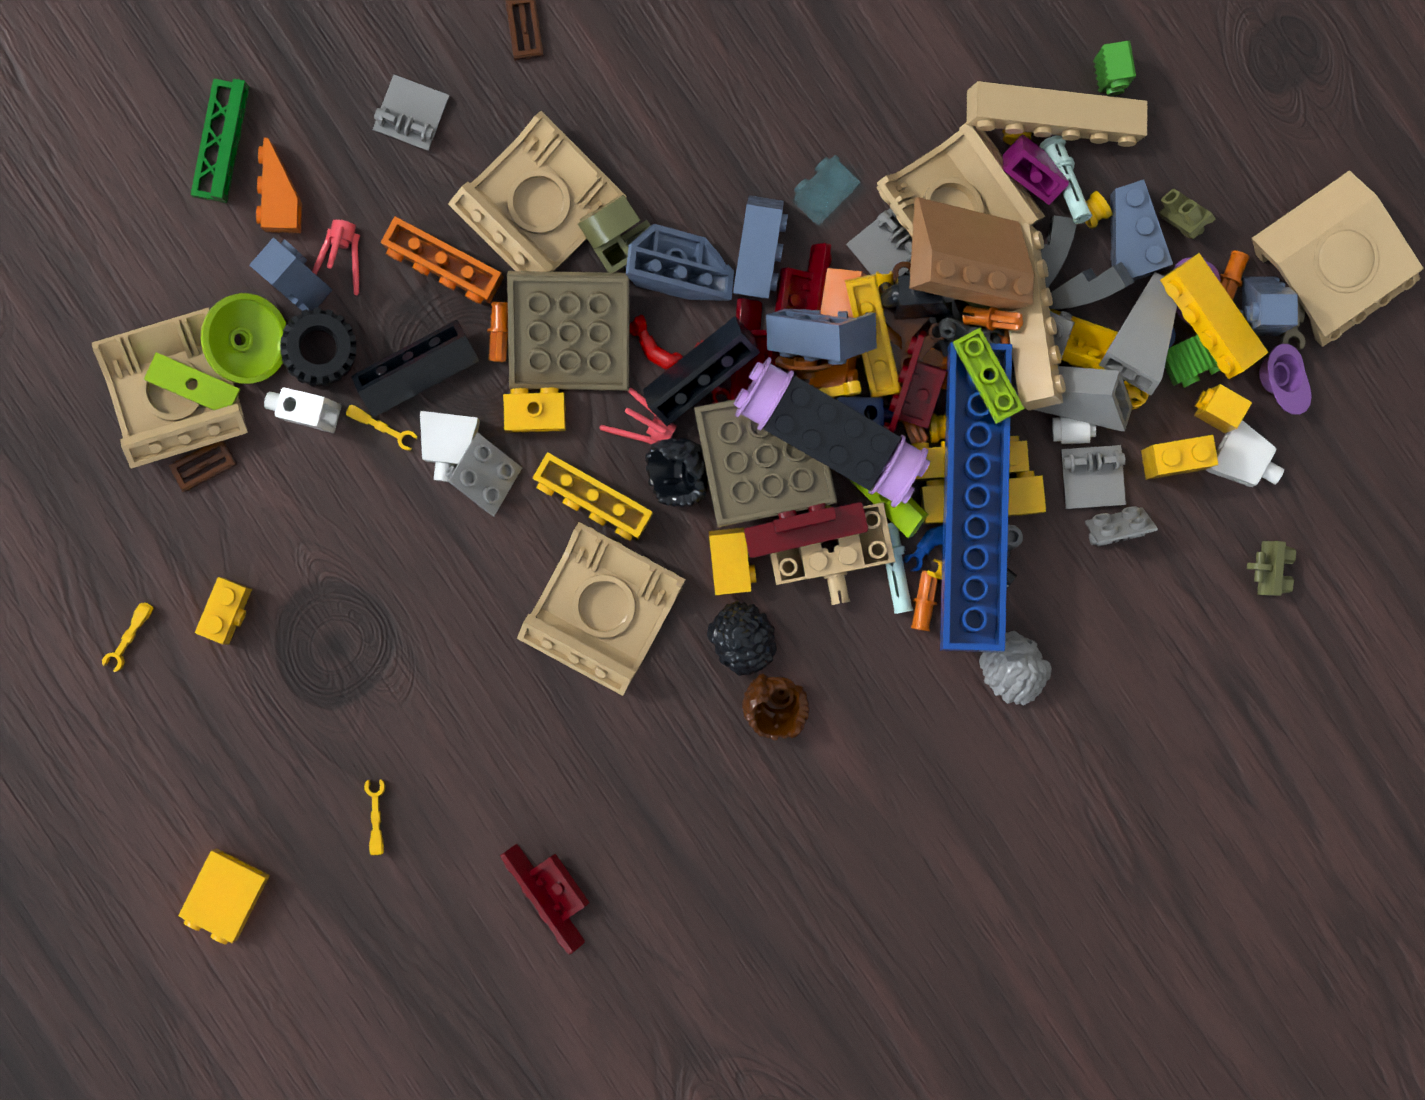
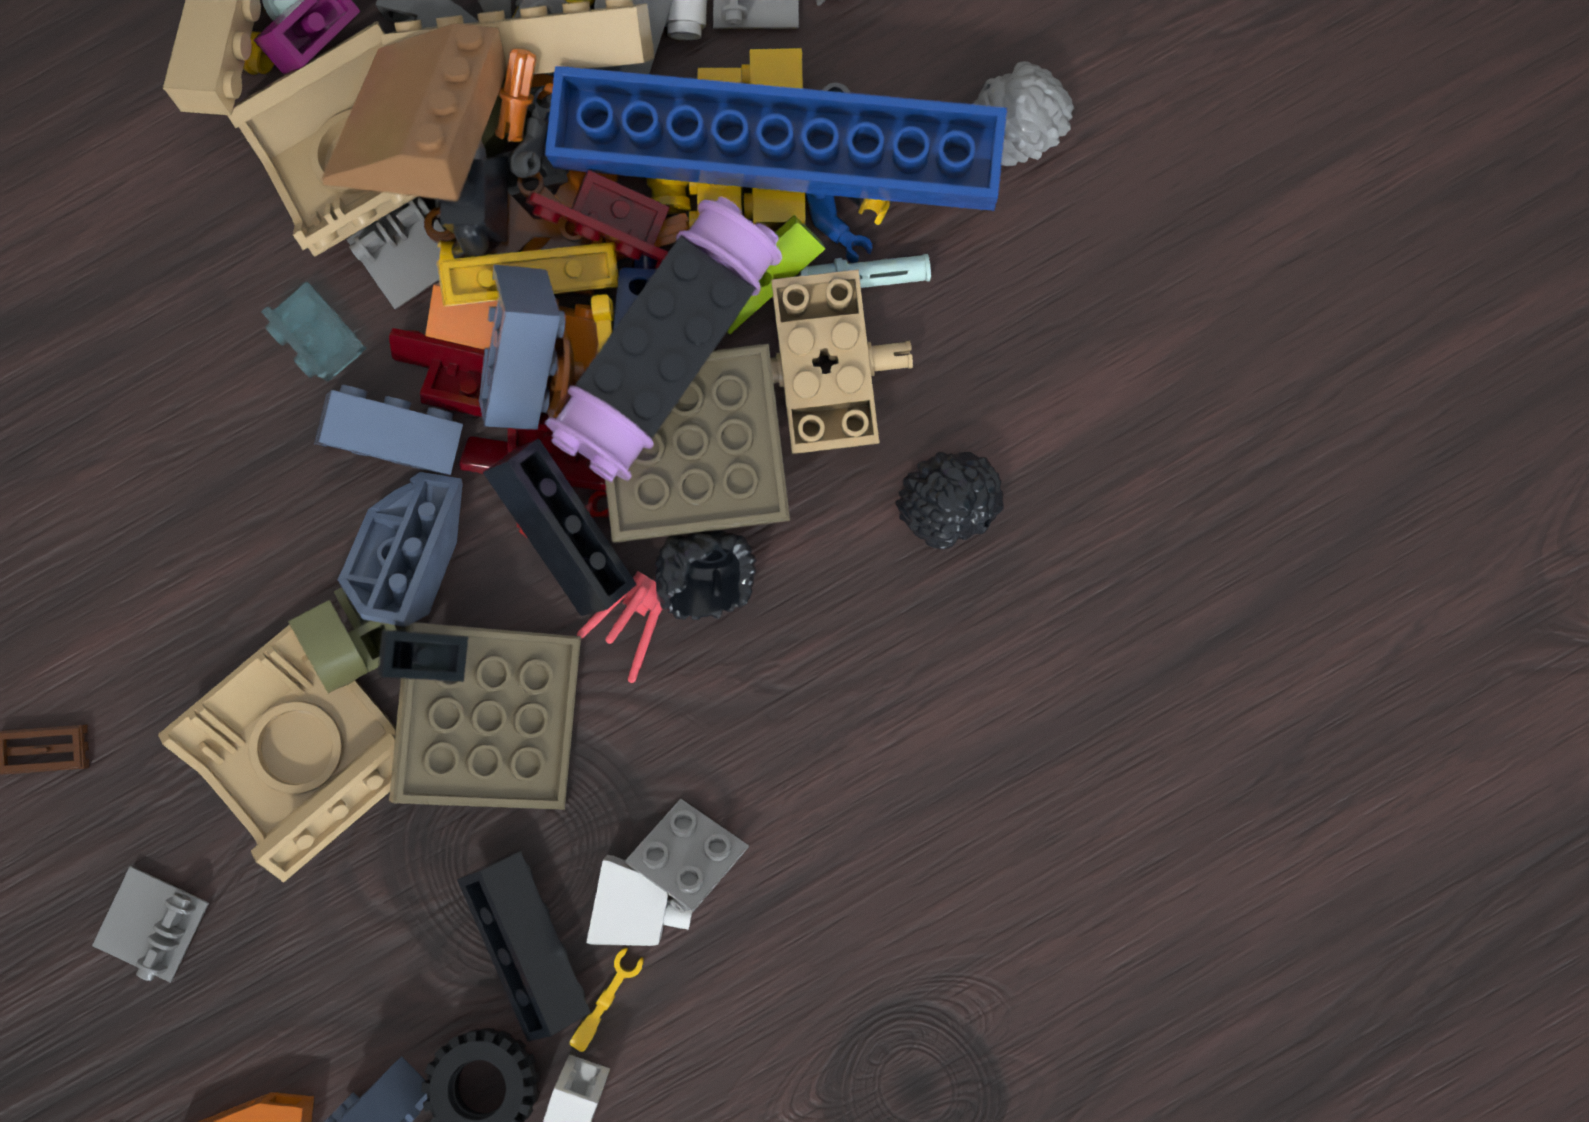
camera: 85 degrees left, 0 degrees up
(340, 236) = (322, 1040): coral plant -> none
(376, 842) = (1205, 1048): yellow piece -> none
(441, 259) = (367, 895): orange brick -> none
(498, 332) = (482, 819): orange axle -> none
(534, 411) = (600, 775): yellow brick -> none
(551, 892) = (1297, 802): dark red bracket -> none
(586, 492) = (729, 699): yellow brick -> none
(601, 609) = (895, 699): tan panel -> none
(607, 287) = (422, 656): none -> black slope
(653, 352) = (528, 598): red arm -> none
(730, 562) = (839, 507): yellow brick -> none
(775, 707) = (1055, 458): reddish brown hair -> none
(805, 529) = (804, 392): dark red bracket -> none
(924, 602) = (916, 236): orange axle -> none
(996, 393) = (626, 92): lime tile -> none

